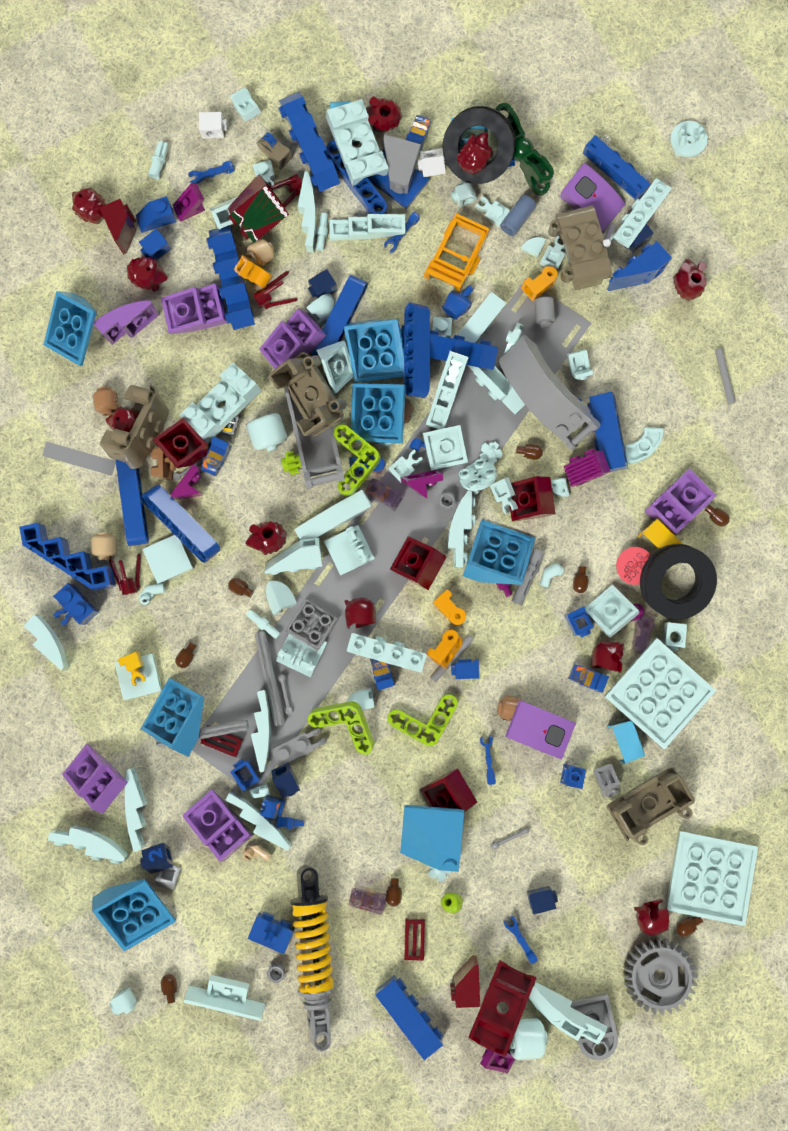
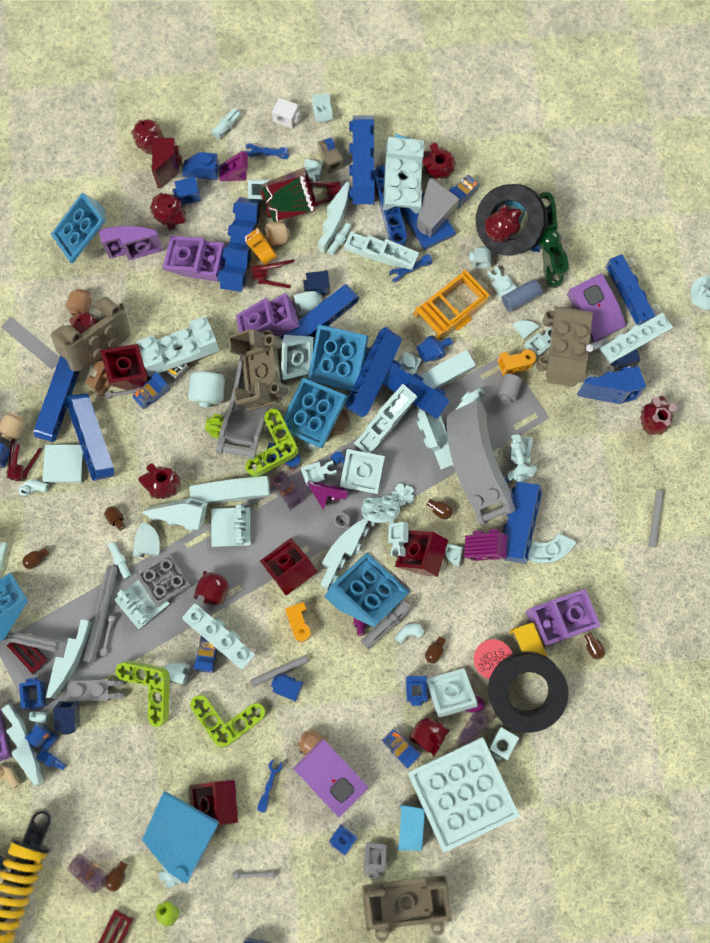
camera: 20 degrees right, 10 degrees down
(184, 487) = (109, 407): magenta slope -> none
(432, 162) = (463, 219): white brick -> none
(446, 649) = (277, 659): light orange leg -> none
(590, 385) = (521, 472): none -> light aqua piece

